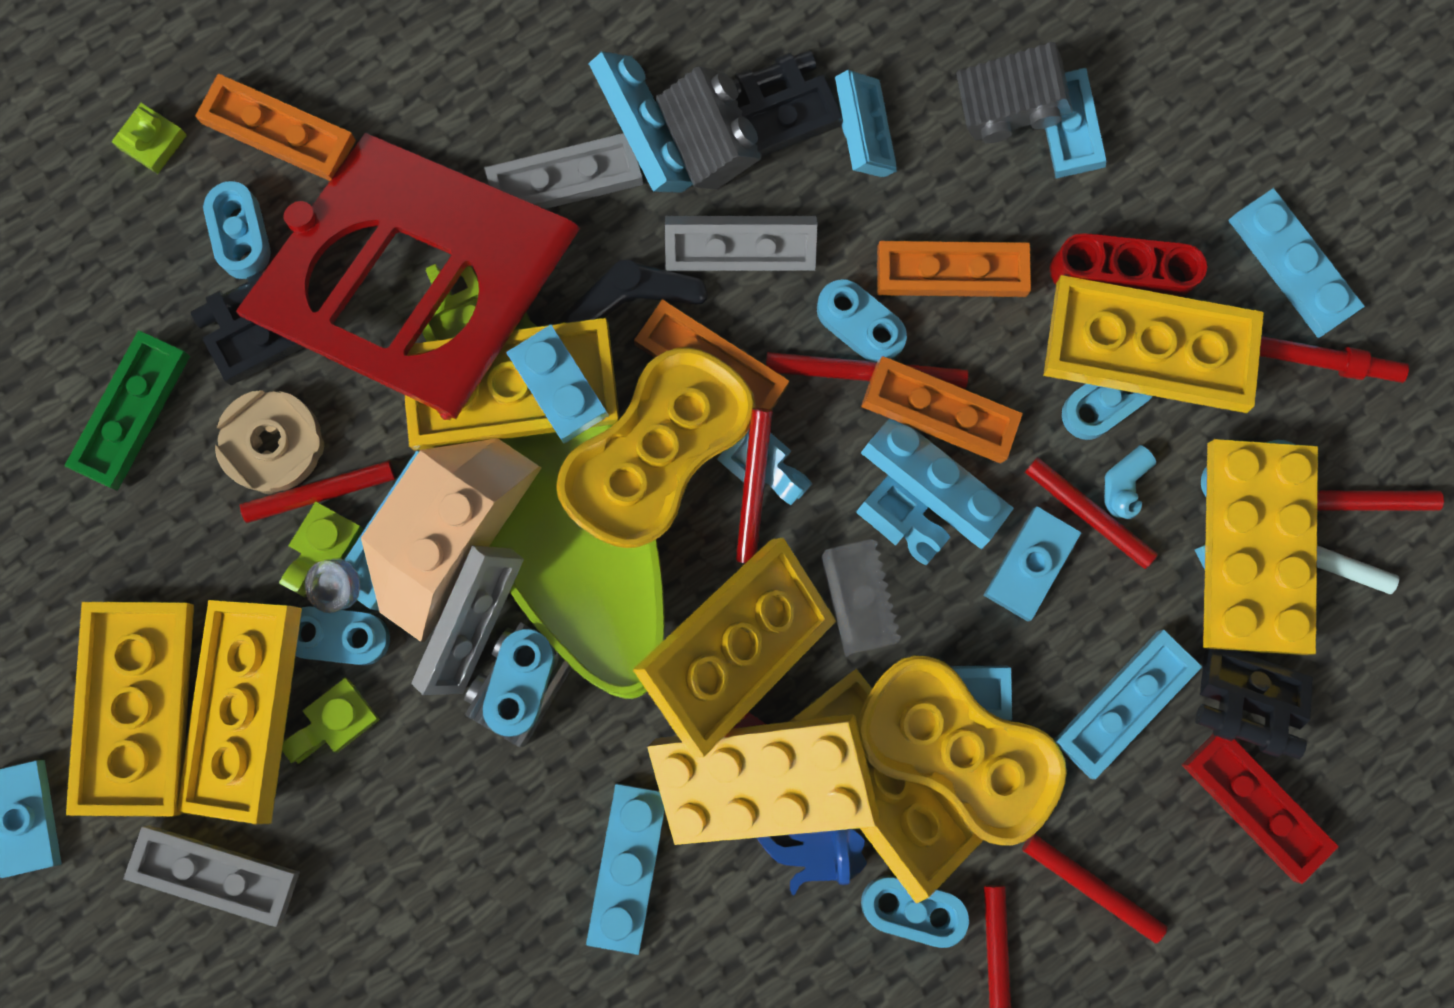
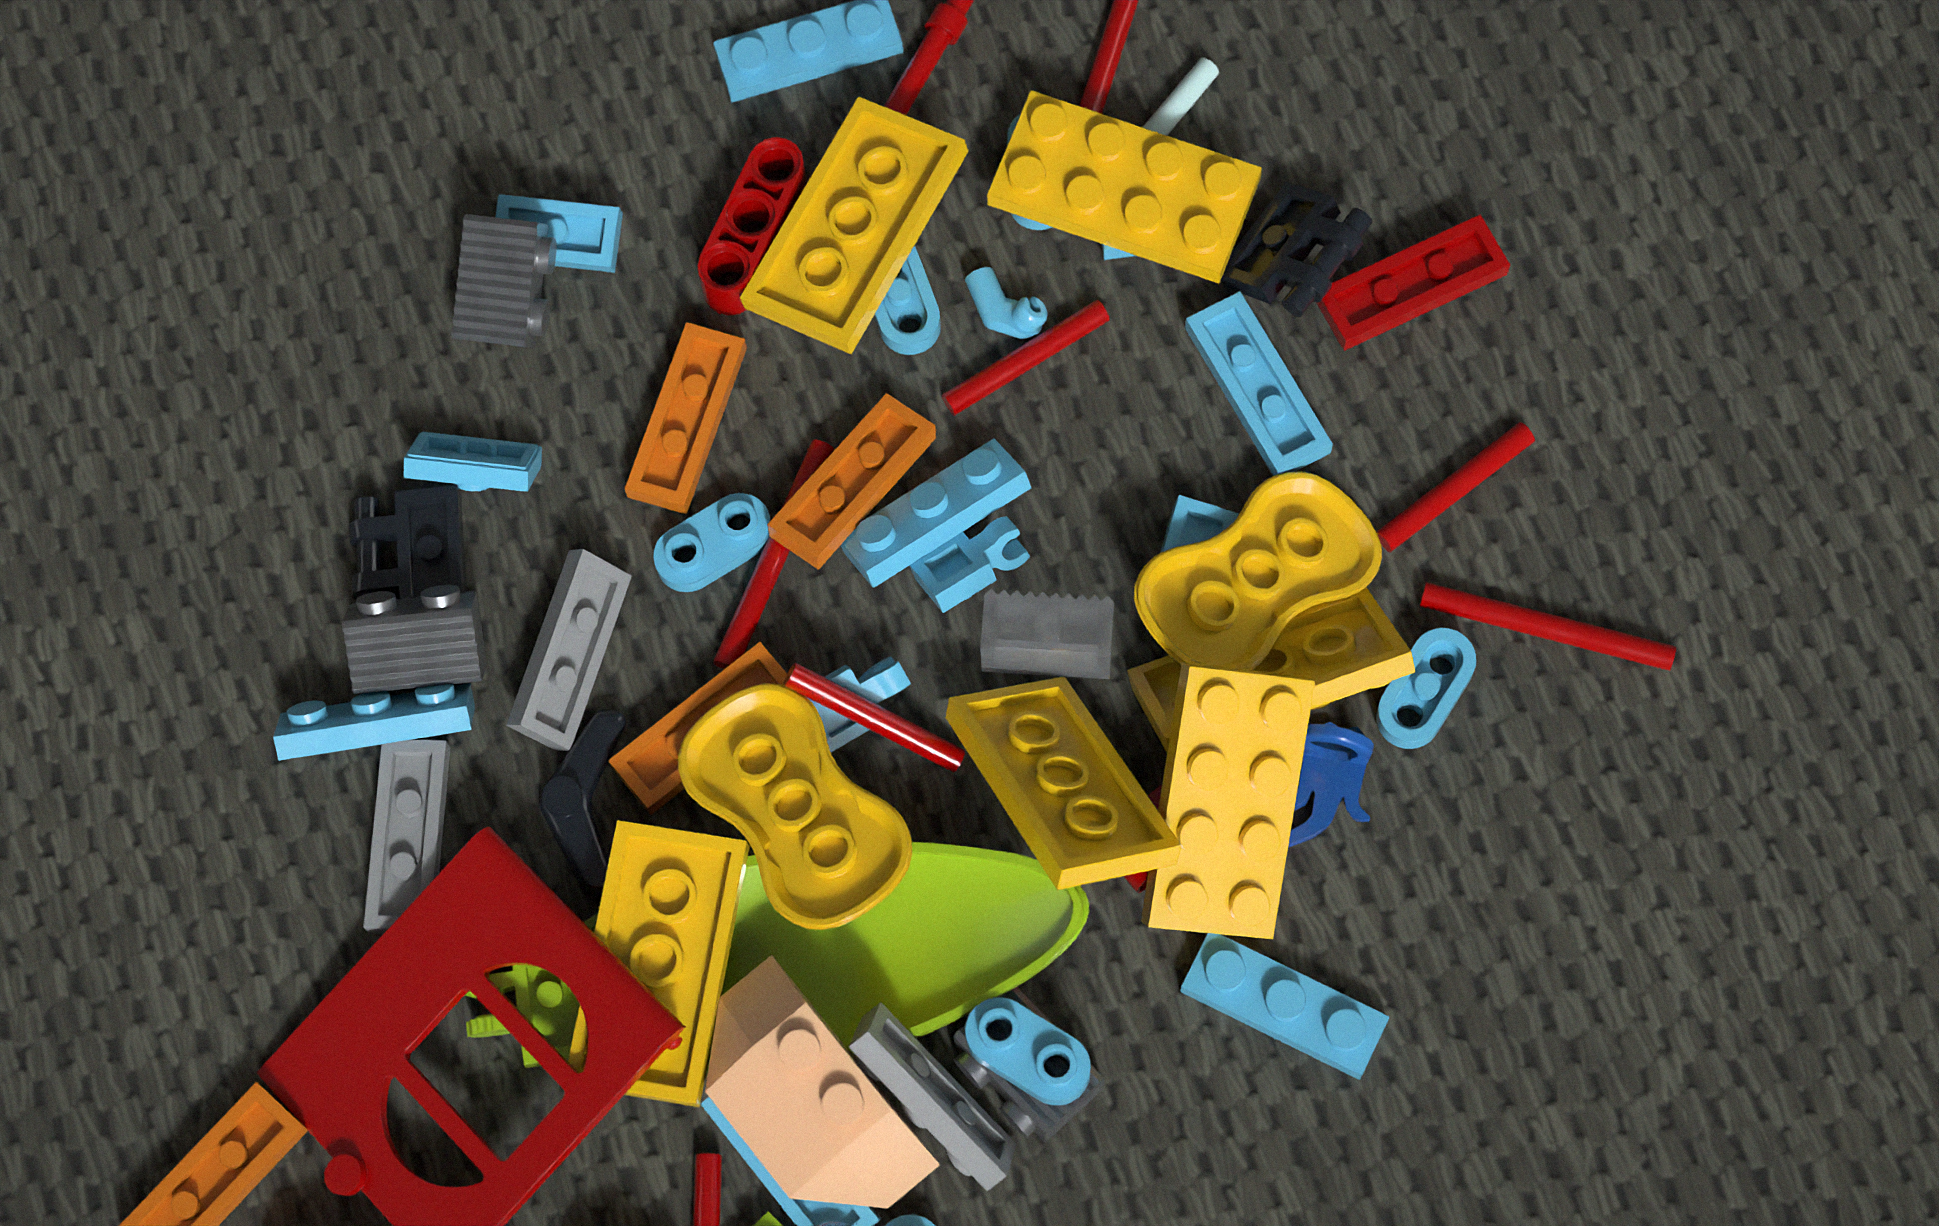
camera: 65 degrees left, 10 degrees down
(557, 384) = (681, 897): medium azure plate -> none
(1032, 564) = (1065, 439): medium azure plate -> none

